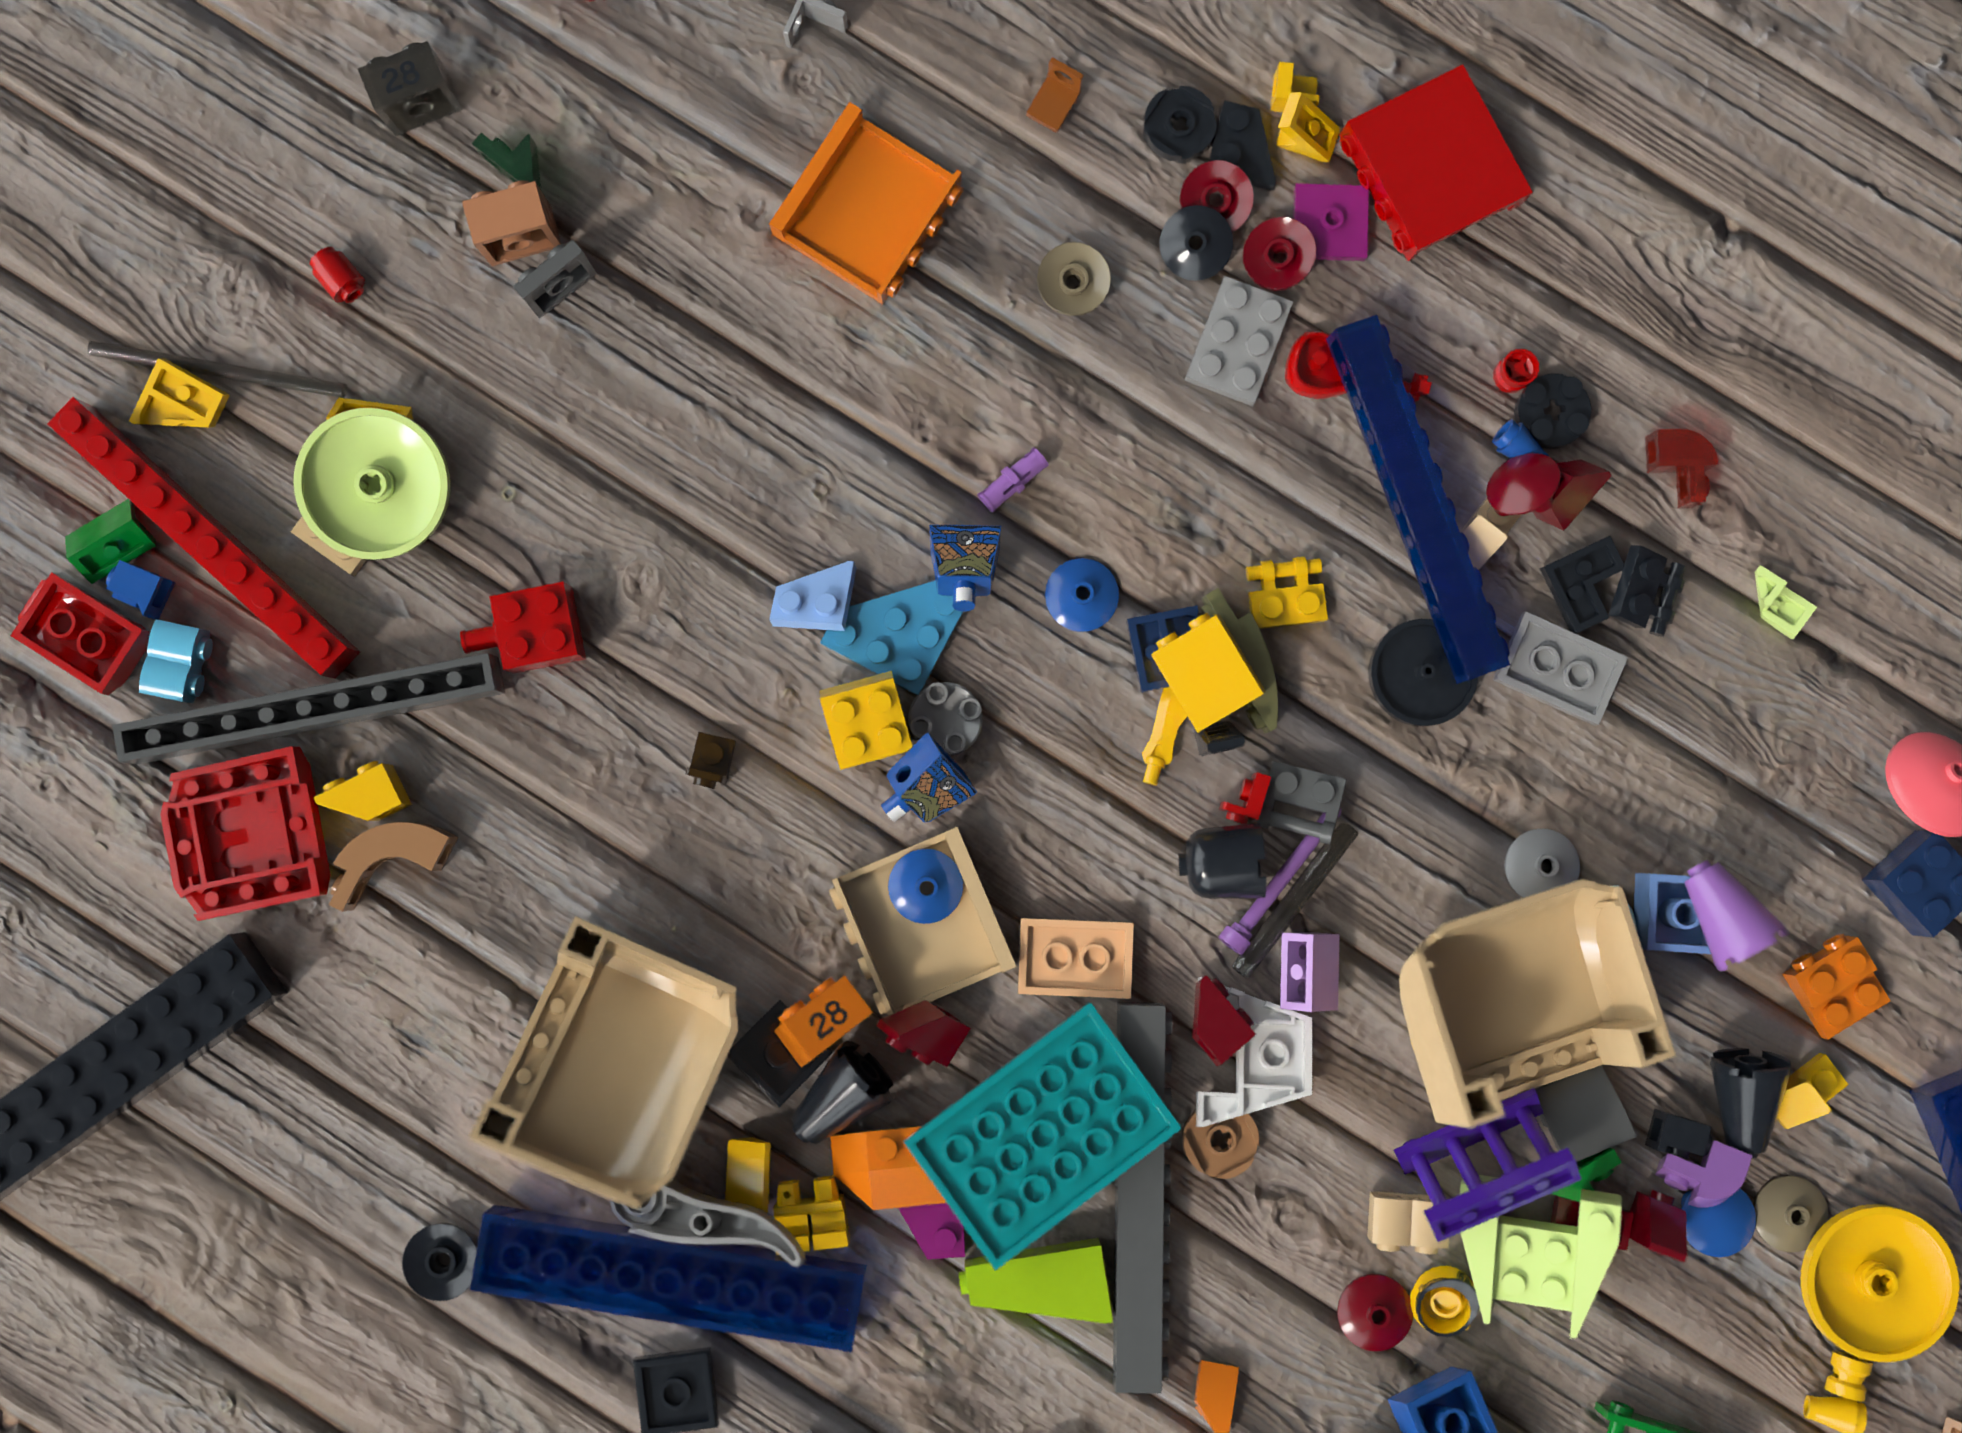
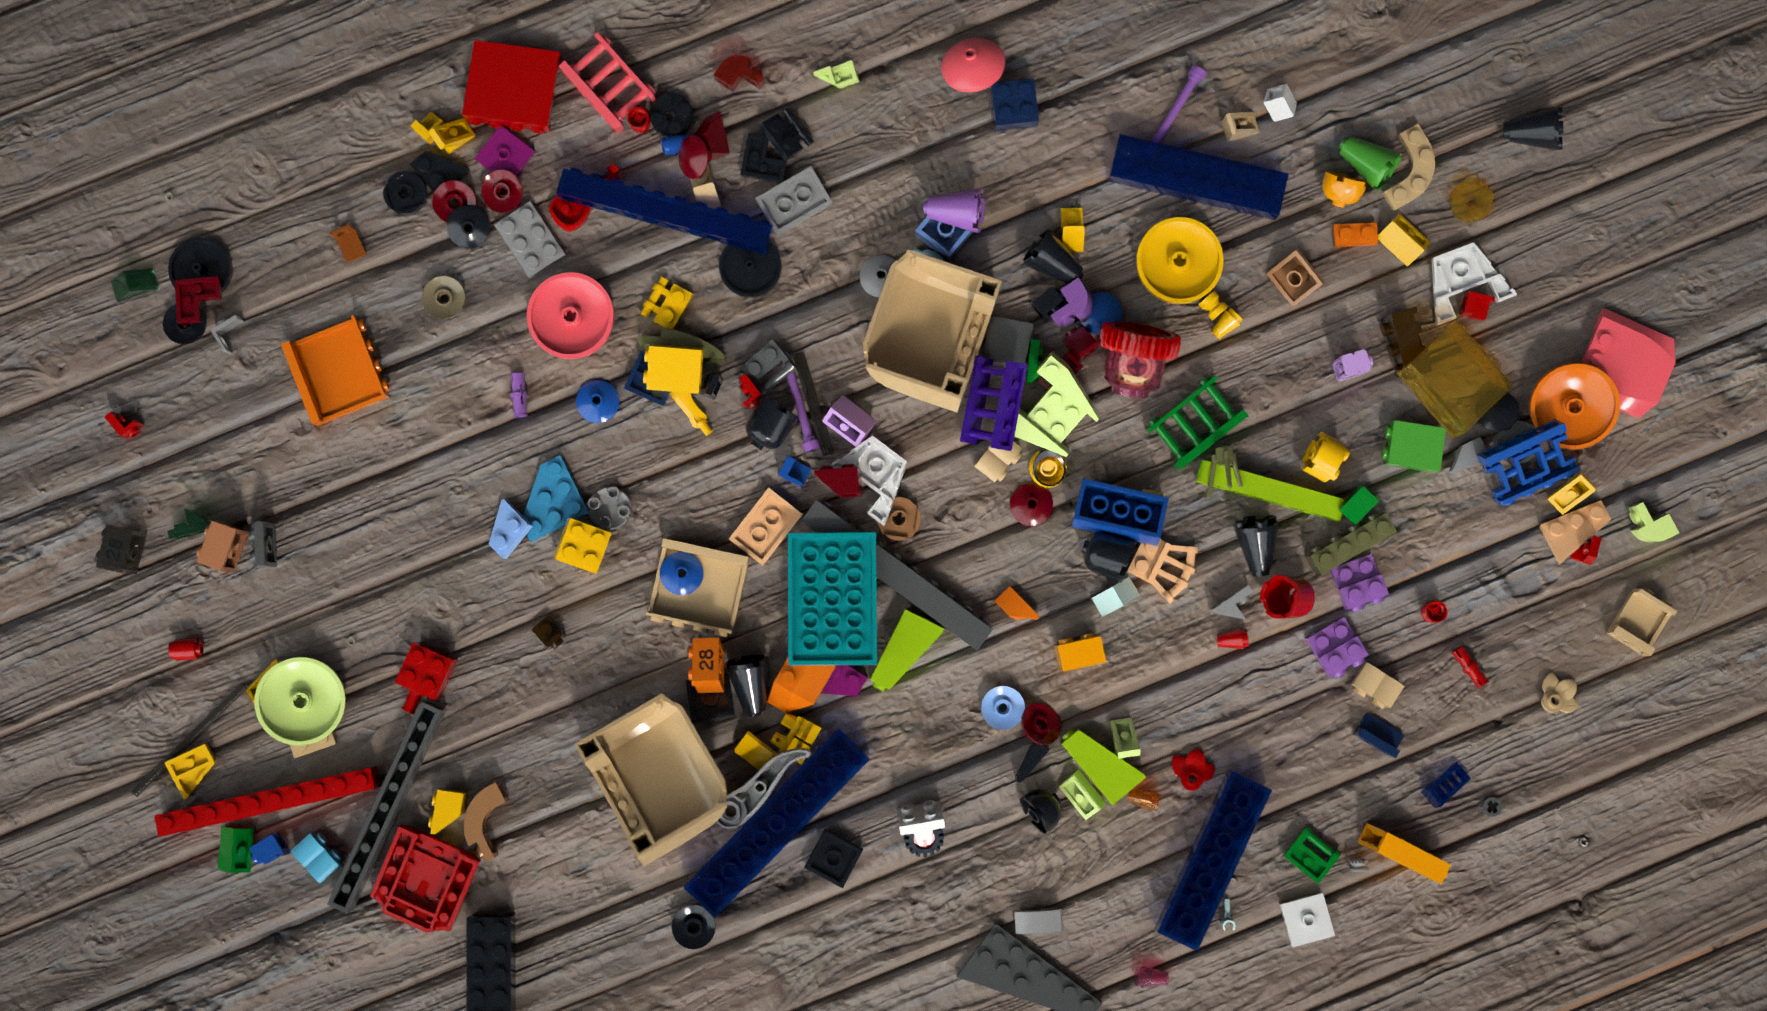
camera: 45 degrees left, 0 degrees up
(81, 634) = (270, 892): red slope -> none
(925, 1030) = (749, 619): dark red slope -> none
(926, 782) = (632, 537): torso -> none
(964, 561) = (540, 445): torso -> none
(1175, 472) = (570, 315): none -> coral dish
(1180, 943) = (794, 472): none -> blue panel
(1500, 301) = (587, 87): none -> coral fence
(1703, 1327) = (1137, 356): none -> piece
(1774, 1209) = (1115, 285): dark tan dish -> none
(1836, 985) = (1033, 179): orange plate -> none

